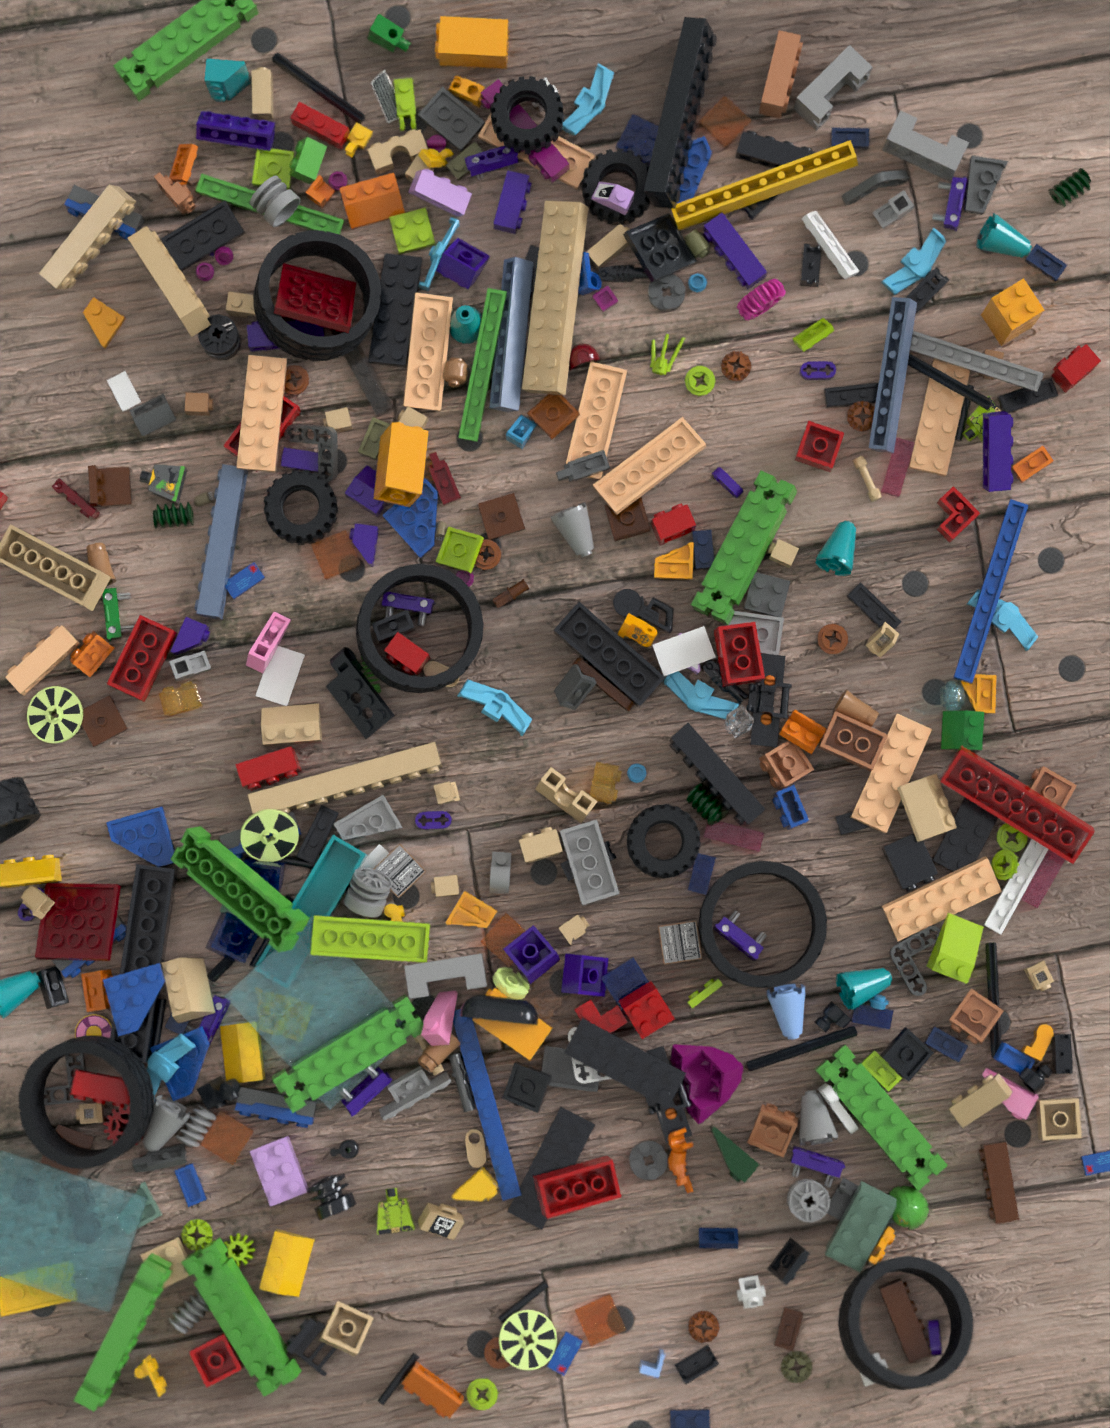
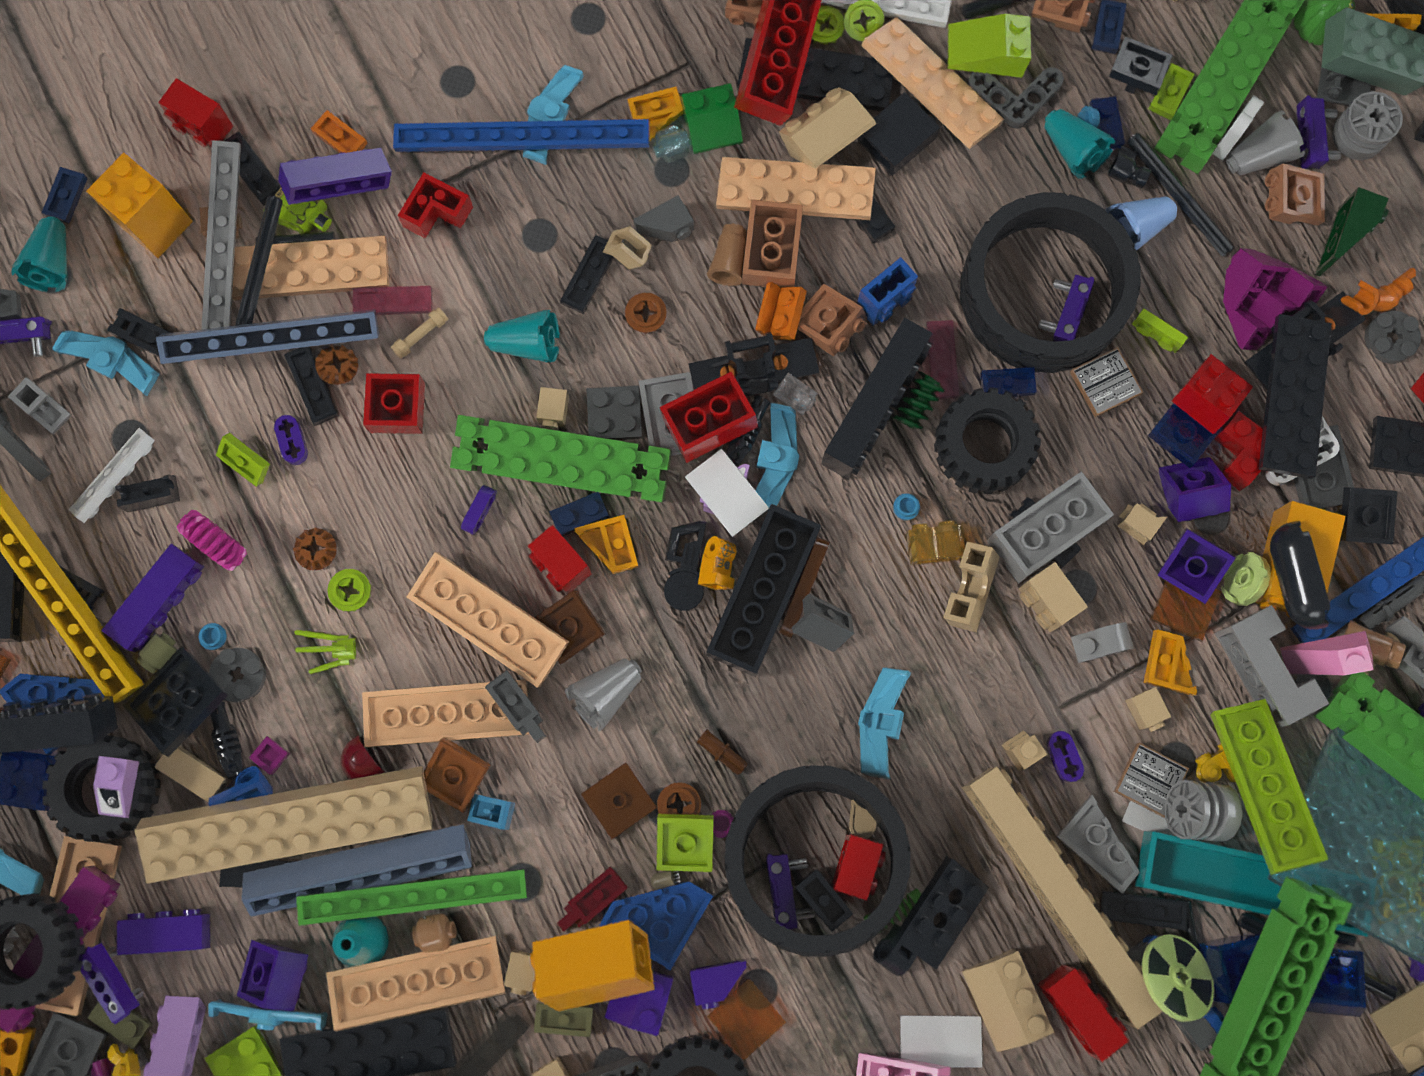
camera: 110 degrees left, 5 degrees down
(894, 675) = (666, 221): none -> dark grey slope

